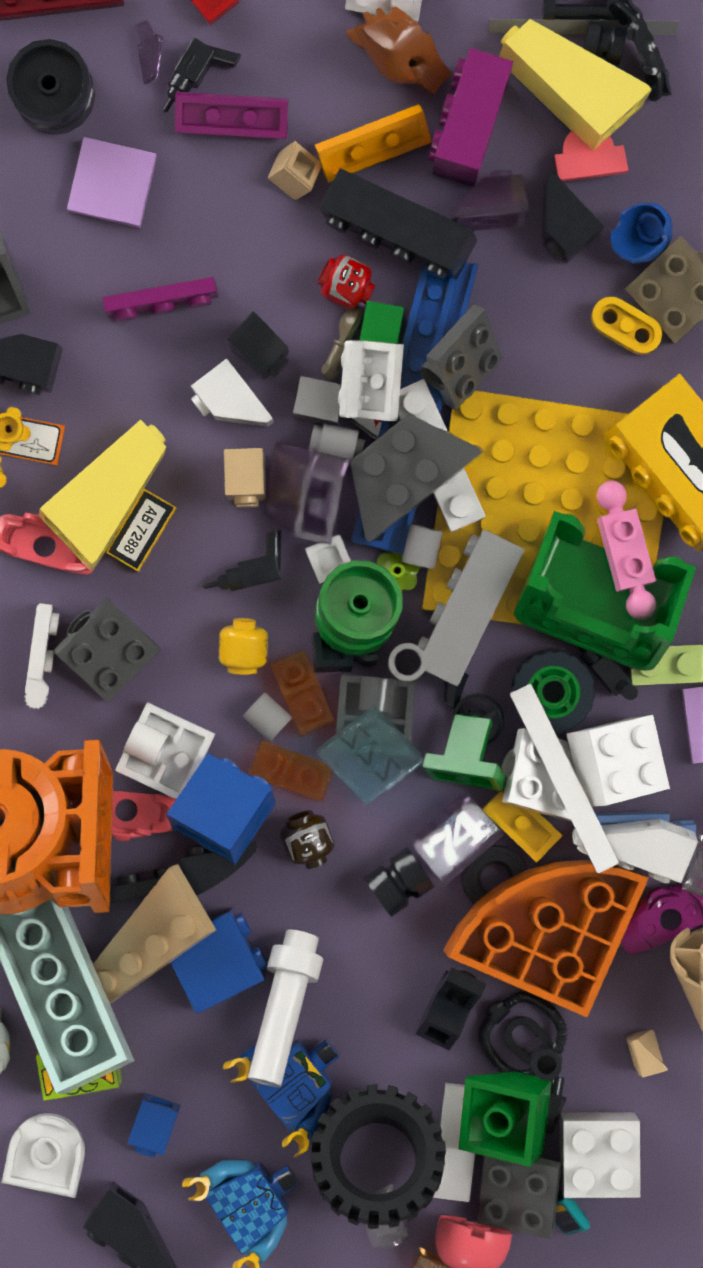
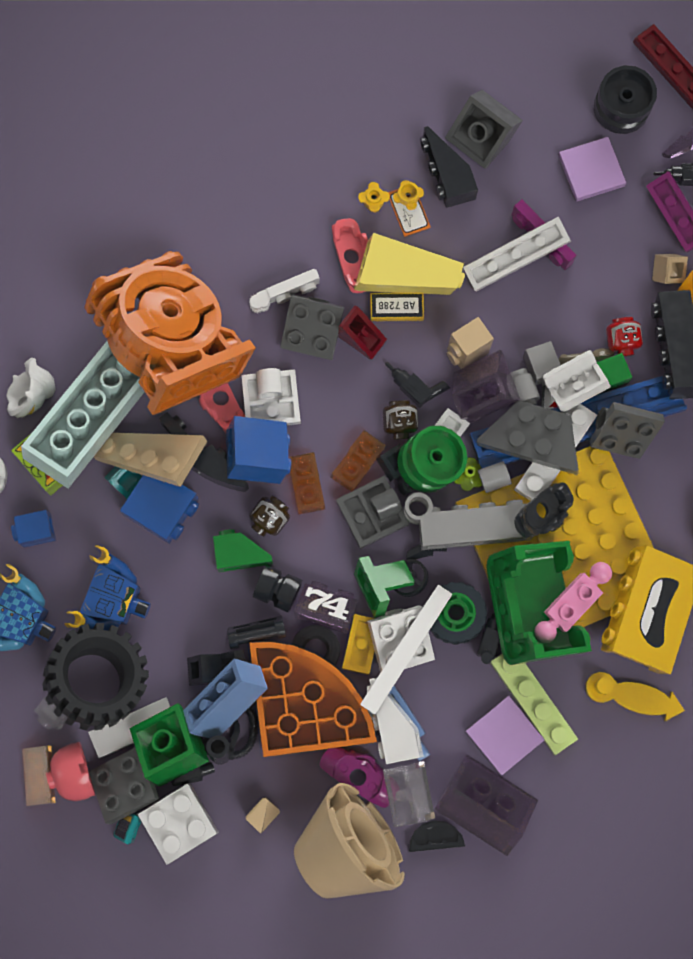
camera: 60 degrees right, 10 degrees down
(151, 594) = (361, 333): none -> dark red slope
(158, 986) = (123, 480): none -> teal slope
(168, 347) = (517, 254): none -> white plate
(229, 397) = (509, 309): white slope -> none
(243, 646) = (364, 407): yellow head -> none
(259, 347) = (552, 306): black slope -> none
(267, 716) = (330, 447): light grey beam -> none
(284, 613) = (400, 419): none -> dark brown head
(294, 968) = (185, 554): white piece -> none
(327, 901) = (238, 552): none -> green slope
(370, 755) = (346, 522): clear light blue tile -> none
(435, 937) = (256, 631): none -> black plate
(497, 494) = (556, 500): none -> black piece
(497, 1024) = (225, 699): none -> medium blue brick
(618, 760) = (439, 678): white brick -> none

